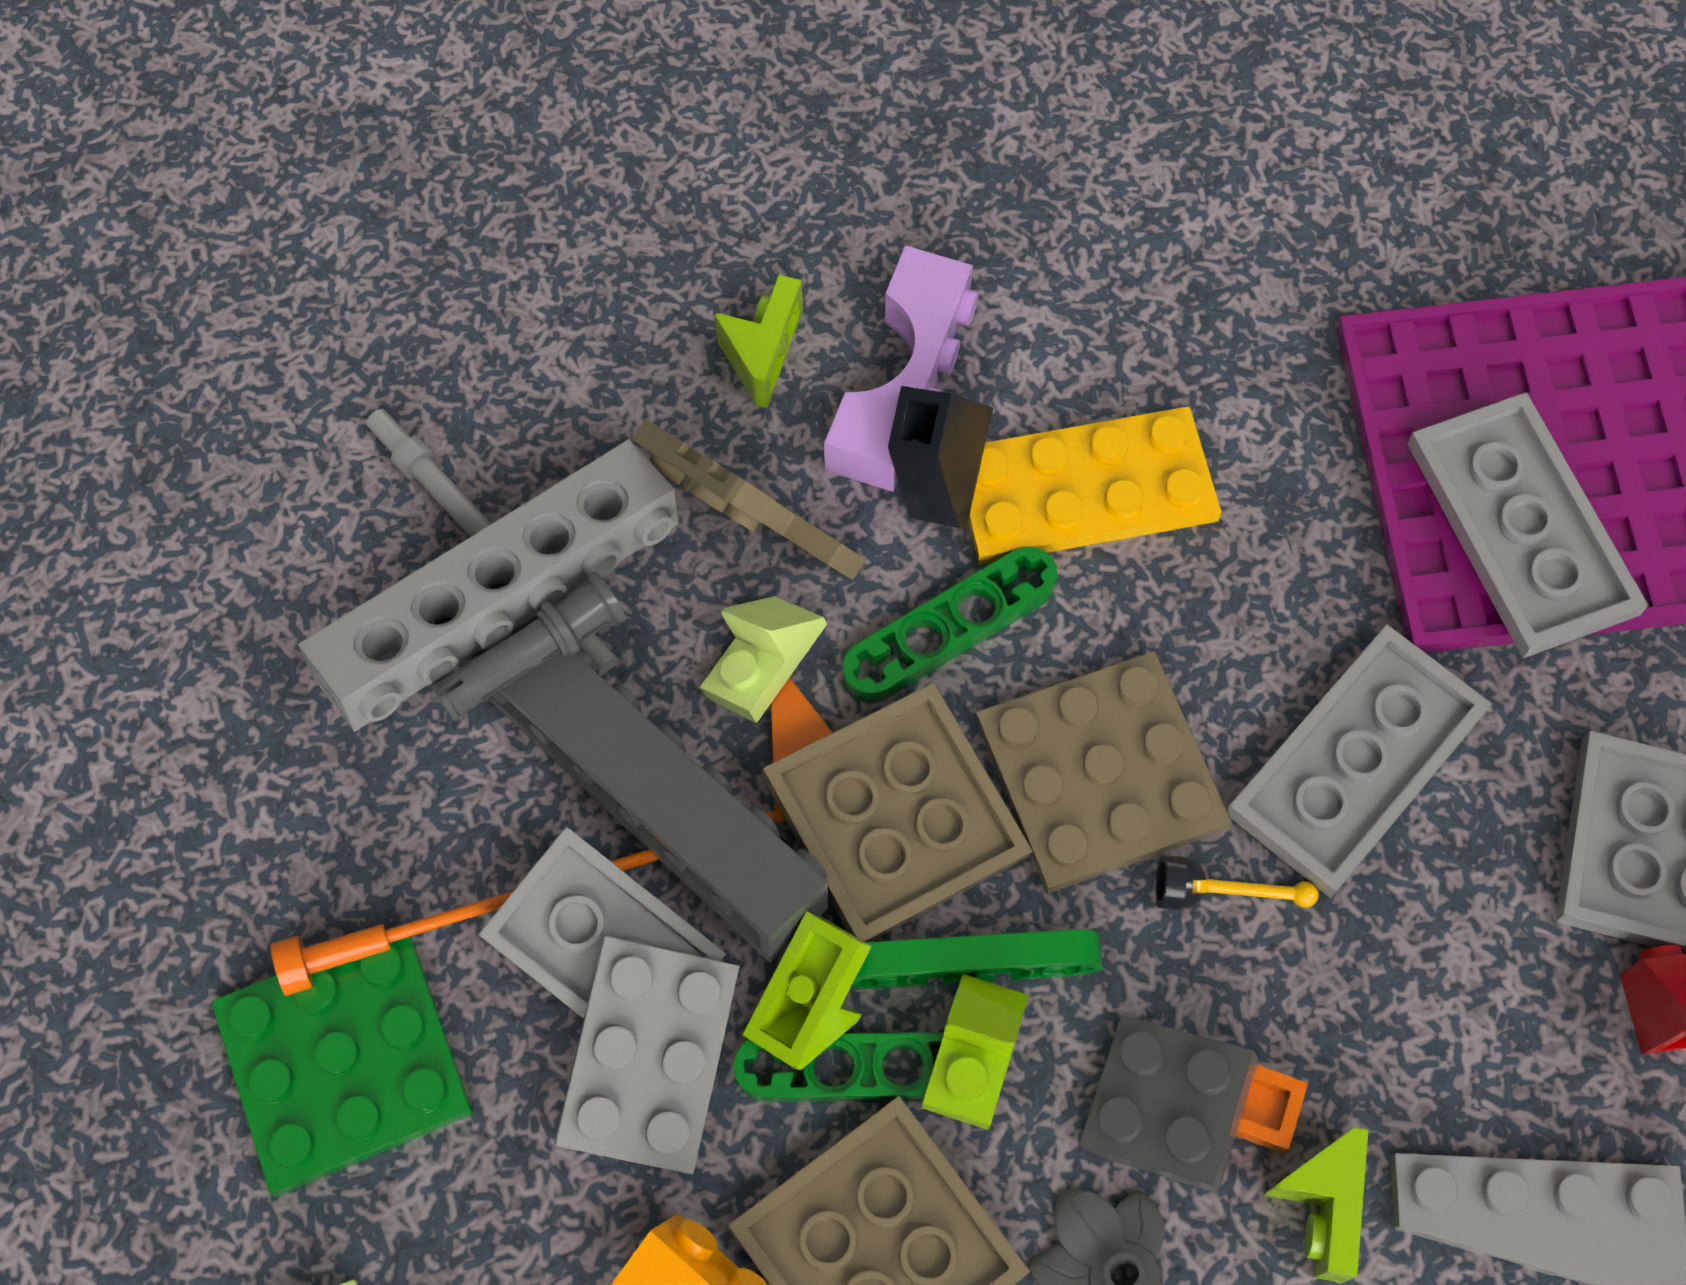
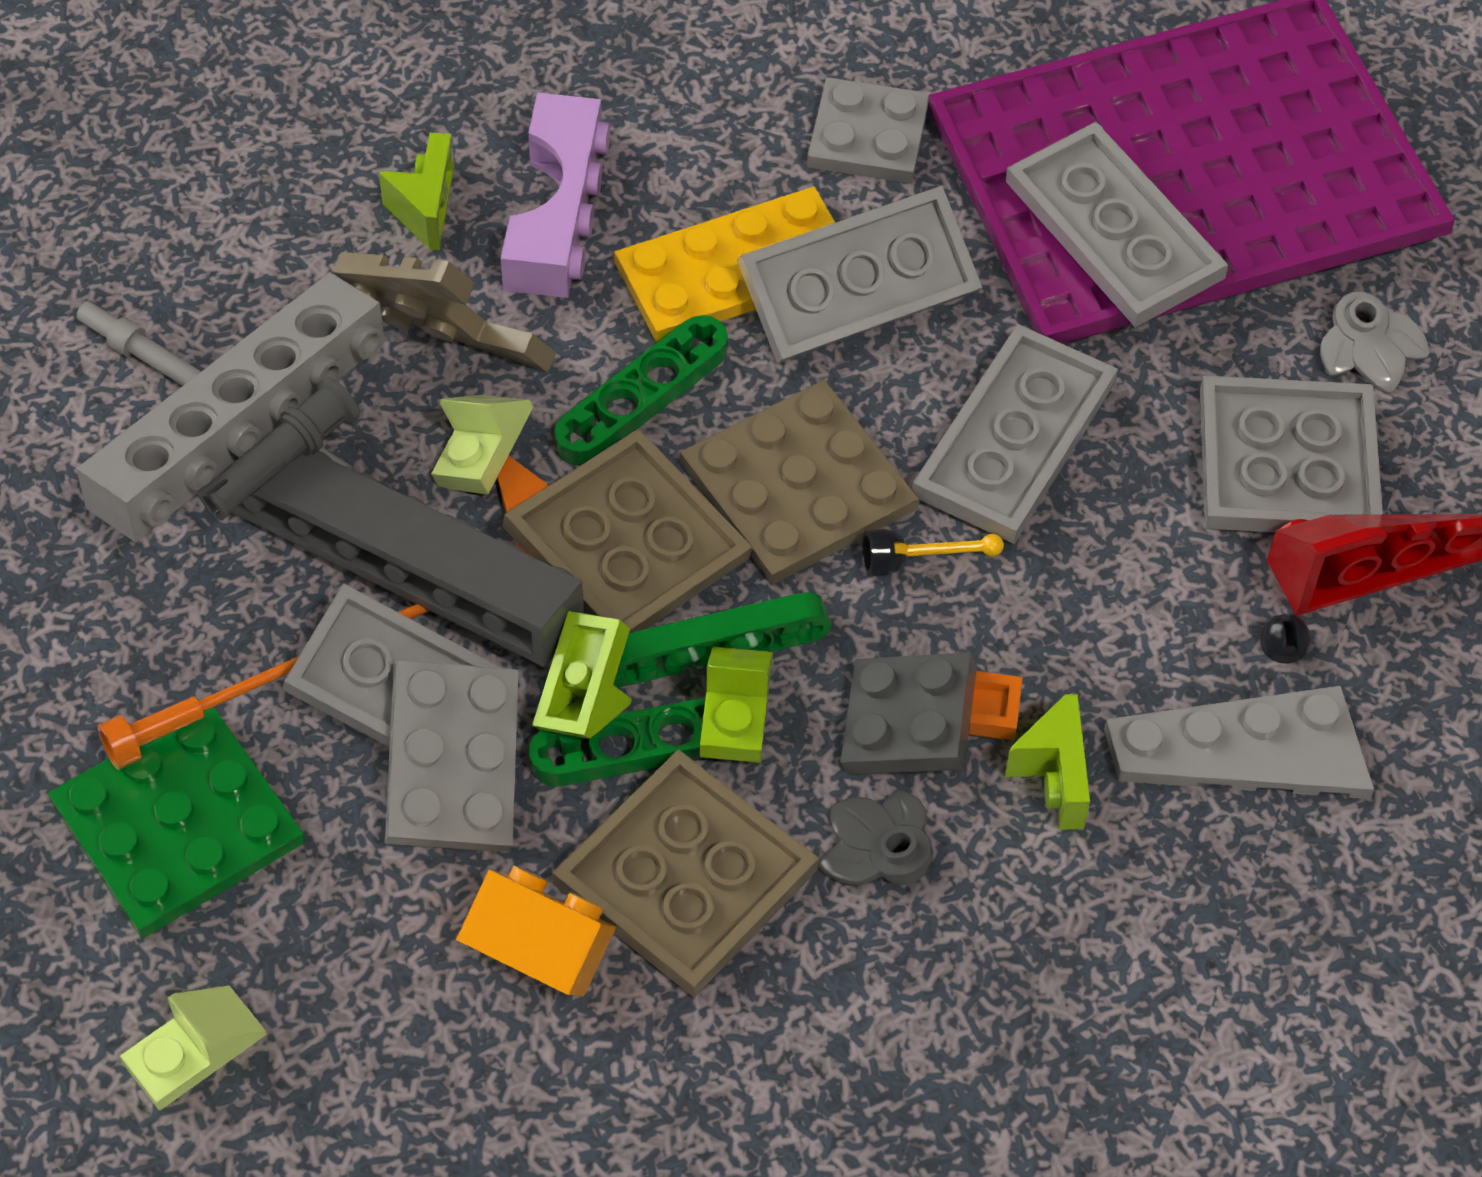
camera: 15 degrees left, 10 degrees down
(938, 453) = (603, 249): black slope -> none
(1219, 530) = (859, 274): none -> light grey plate
(1264, 345) = (868, 130): none -> light grey plate
(1614, 1084) = (1276, 641): none -> black hinge

